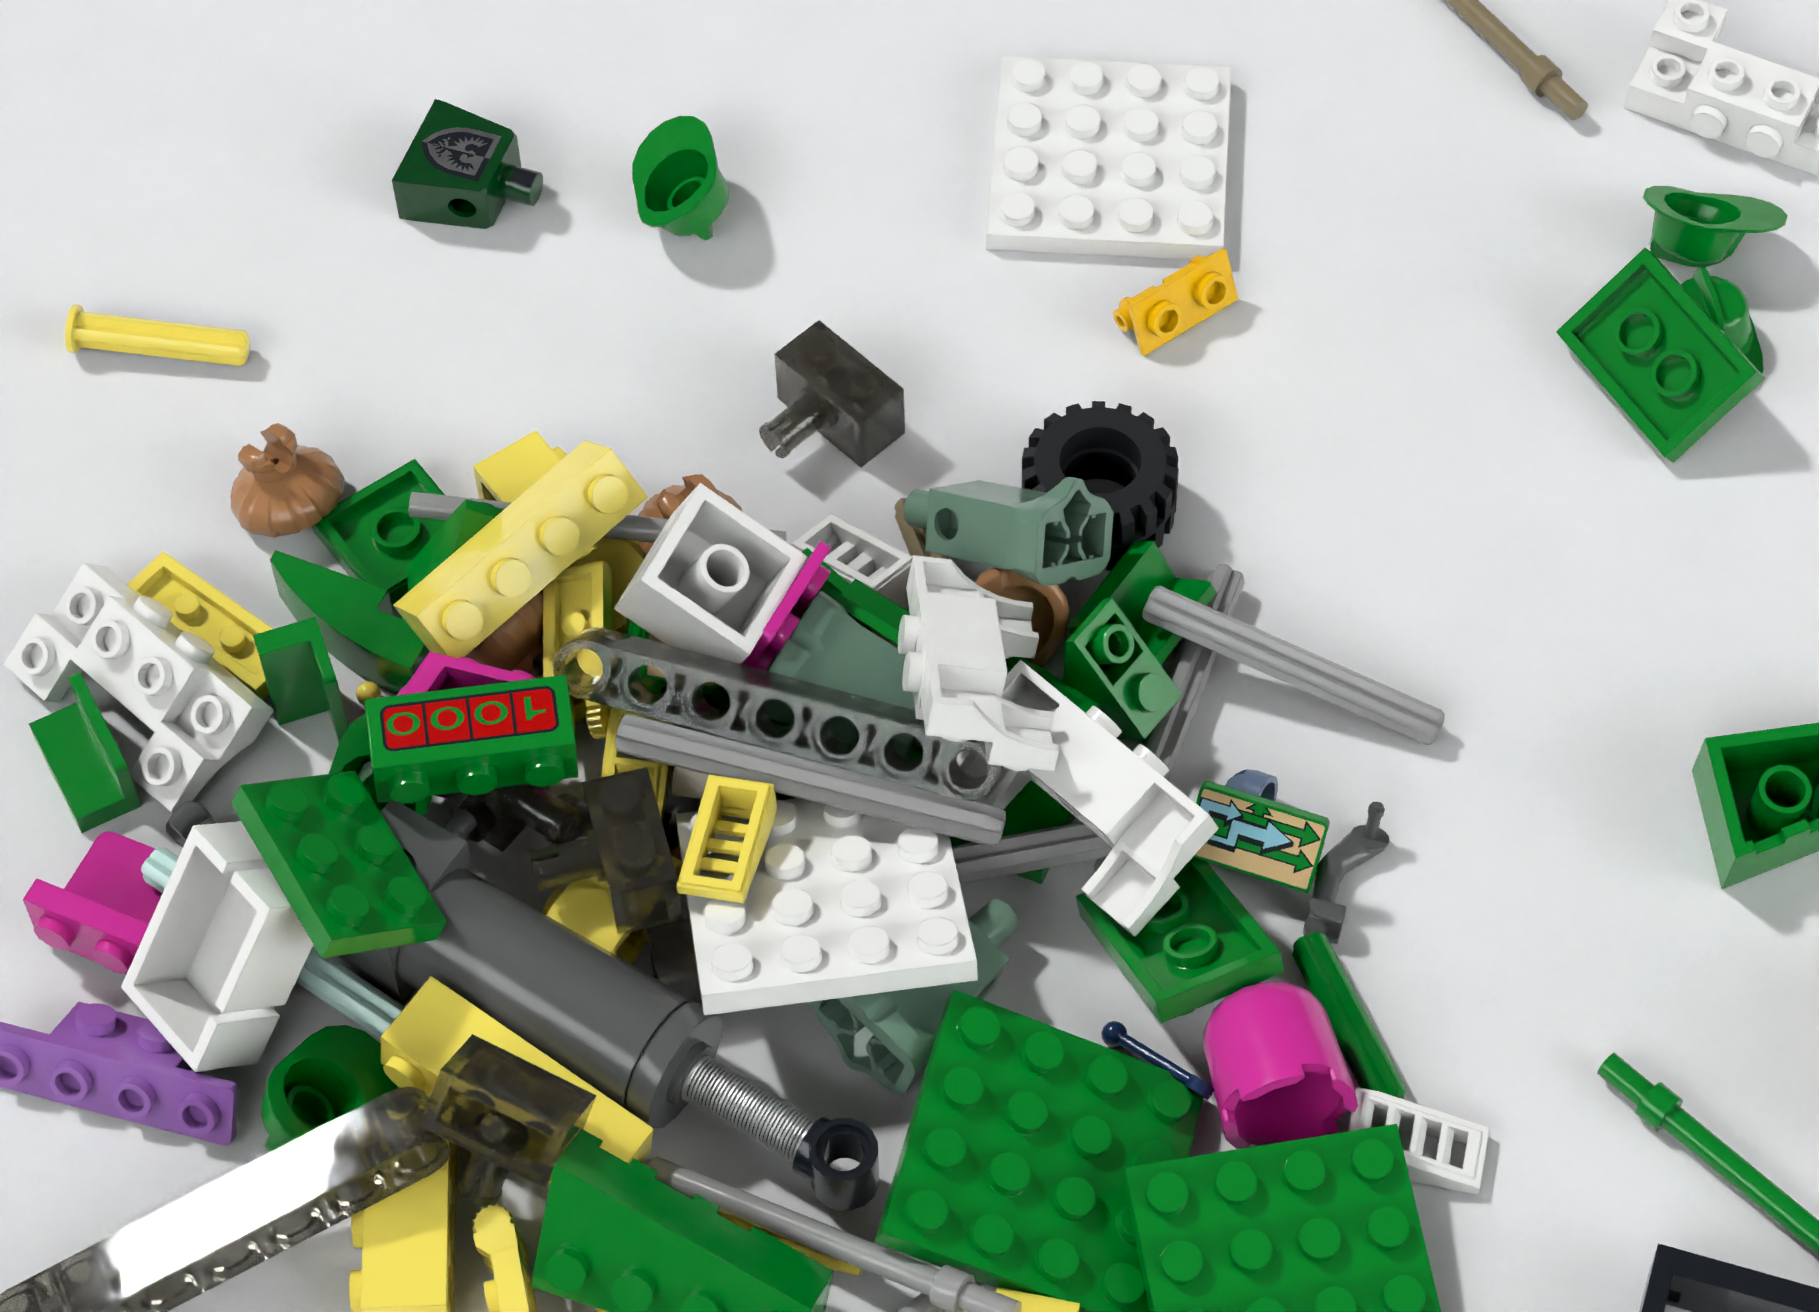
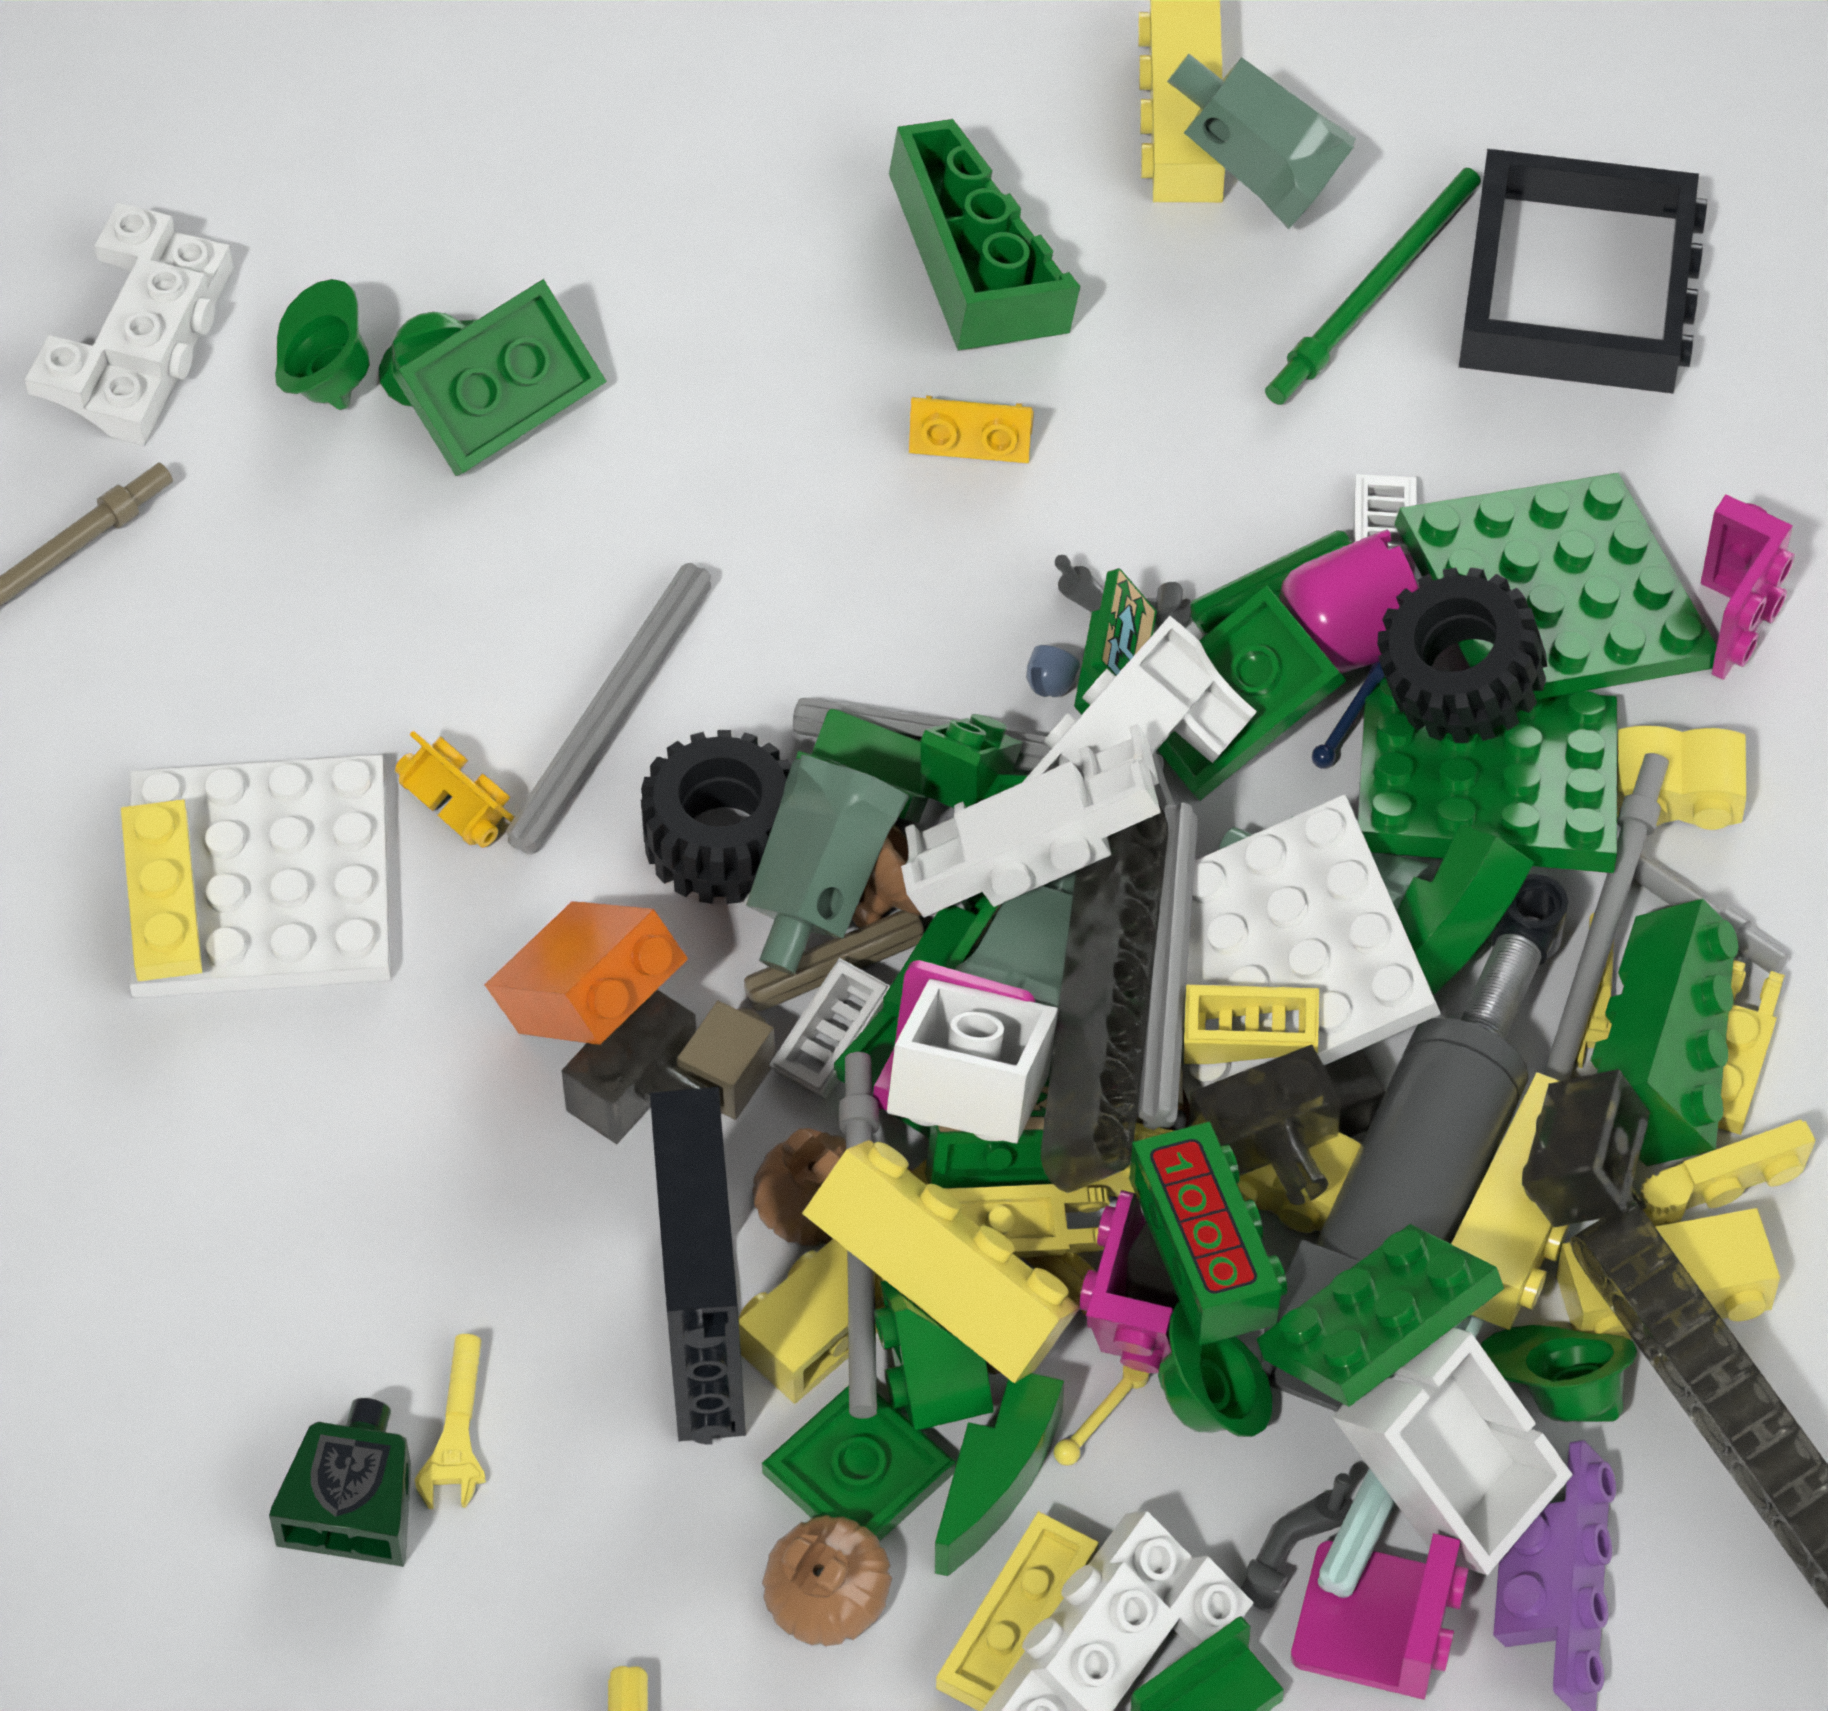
camera: 100 degrees left, 0 degrees up
(300, 674) = (1089, 1467): green panel -> none
(485, 252) = (453, 1456): none -> light yellow piece
(555, 296) = (698, 1264): none -> black window
(679, 178) = (354, 1253): green piece -> none
(831, 469) = (730, 1053): none -> dark tan brick
(848, 1067) = (1462, 903): none -> green slope
(922, 347) = (586, 972): none -> orange brick
(1083, 67) = (161, 890): none -> light yellow plate
(1148, 1152) = (1451, 612): none -> black tyre
(1263, 429) = (608, 709): none -> light grey axle
(1293, 665) = (912, 640): light grey axle -> none
(1584, 743) = (970, 430): none -> yellow hinge

